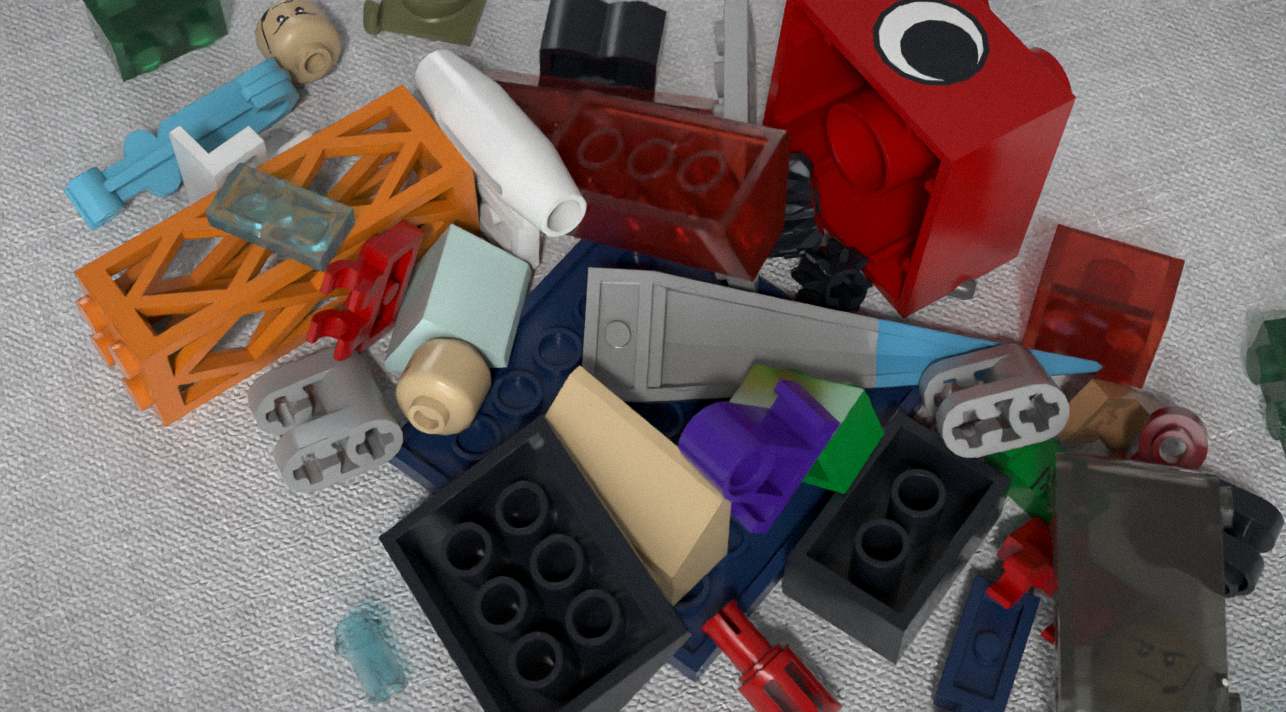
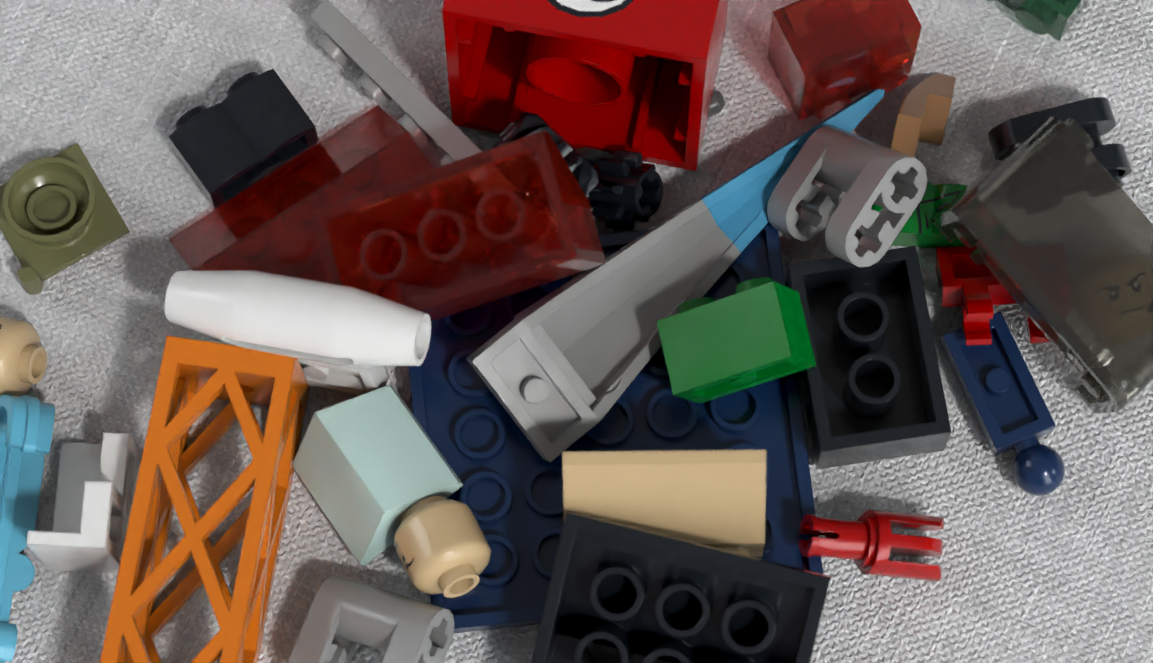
camera: 40 degrees left, 15 degrees up
(280, 216) = (208, 537): clear light blue plate -> none
(376, 287) = (309, 529): red plate -> none
(758, 452) = (755, 396): dark purple pin -> none
(1168, 423) = (980, 118): dark red plate -> none

